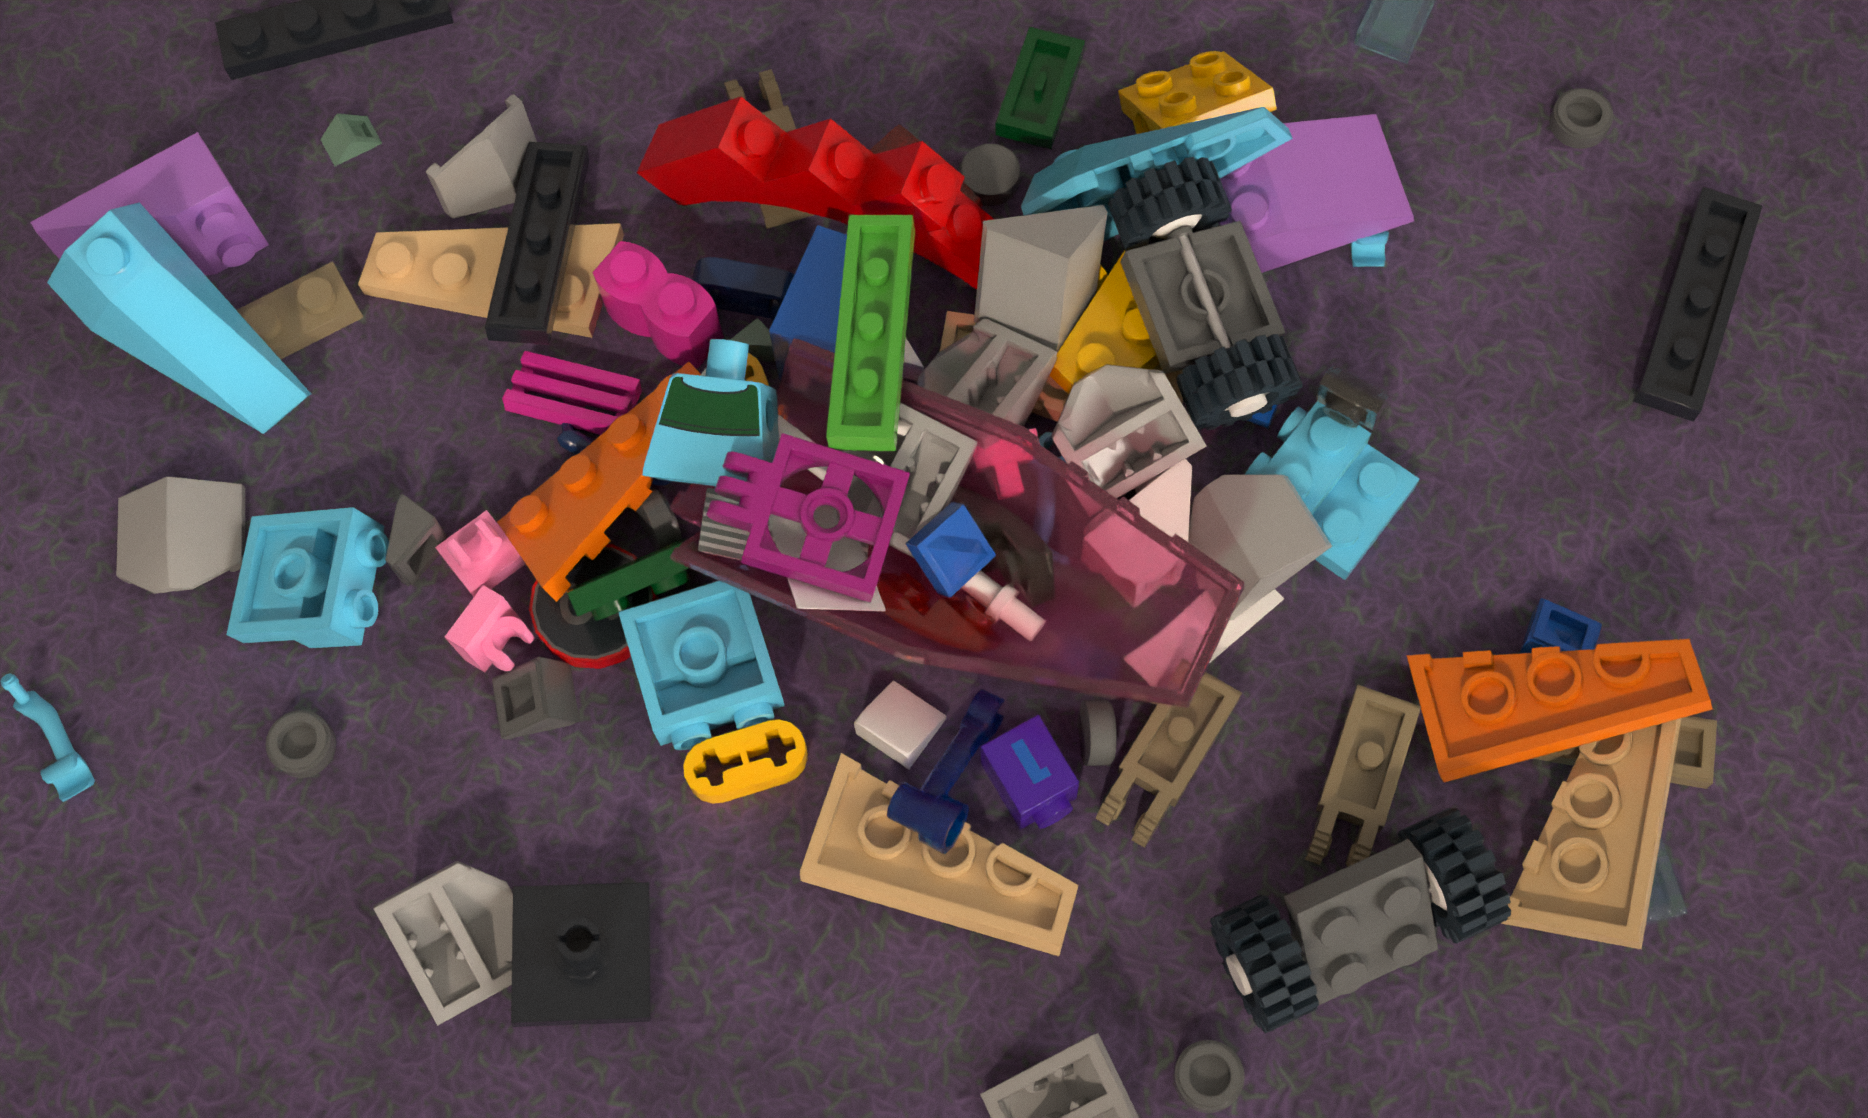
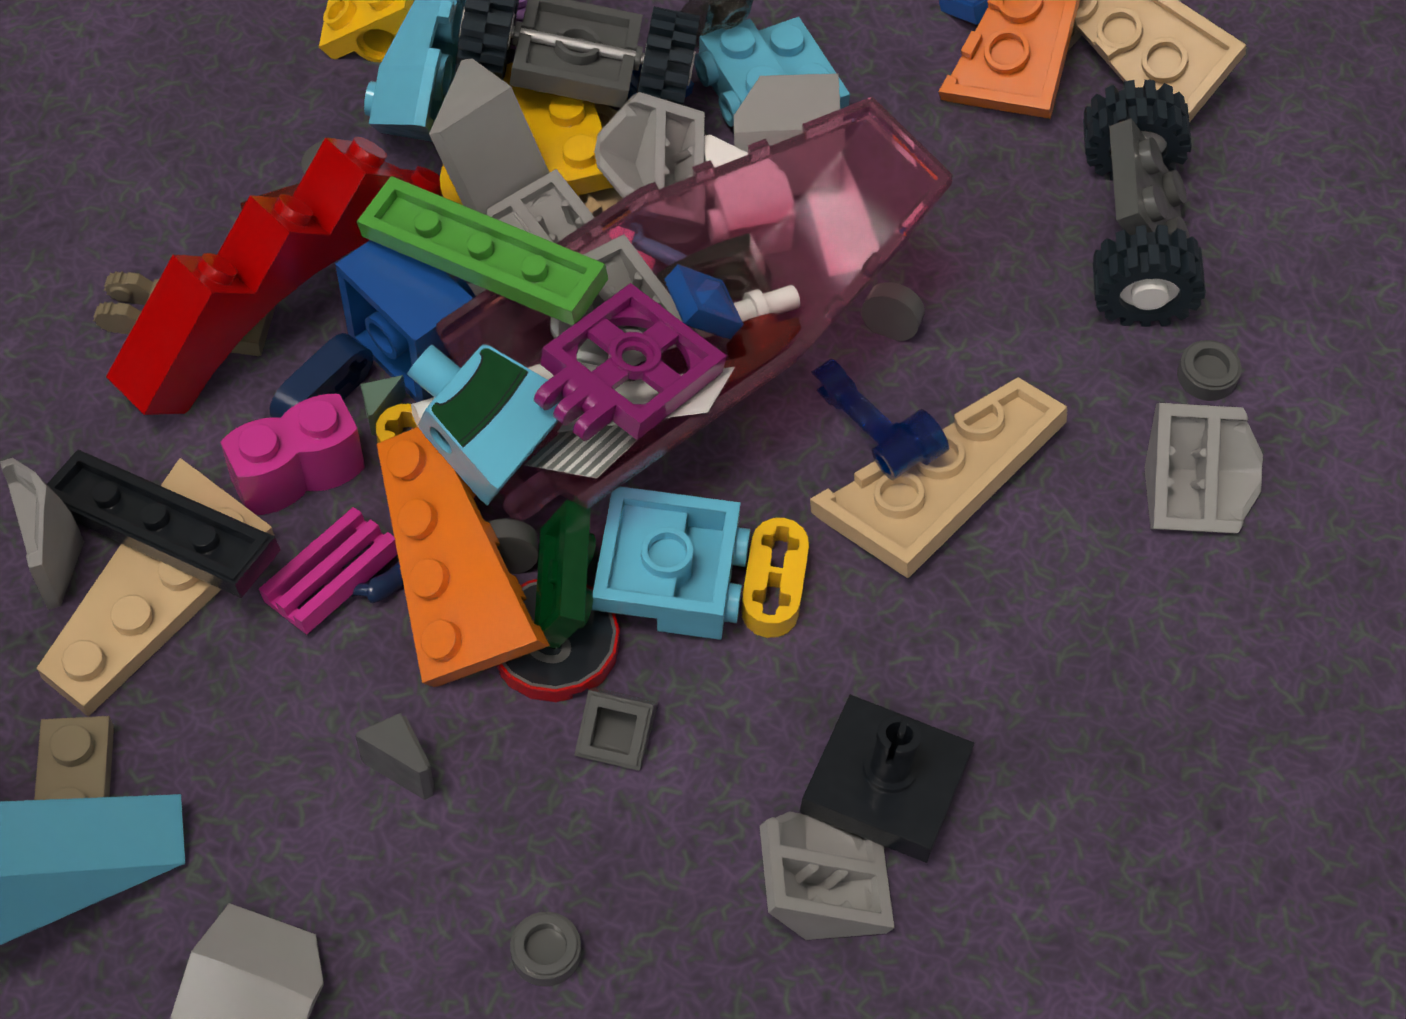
camera: 70 degrees left, 10 degrees down
(309, 578) = (381, 866): medium azure plate -> none
(480, 554) = (444, 712): bright pink tile -> none
(486, 629) = (534, 728): bright pink tile -> none
(899, 724) = (806, 451): white slope -> none
(1030, 774) = (906, 368): dark purple brick -> none
(1040, 87) = (277, 95): dark green plate -> none
(1170, 754) = (943, 281): dark tan hinge -> none
(1364, 771) = (1023, 164): dark tan hinge -> none

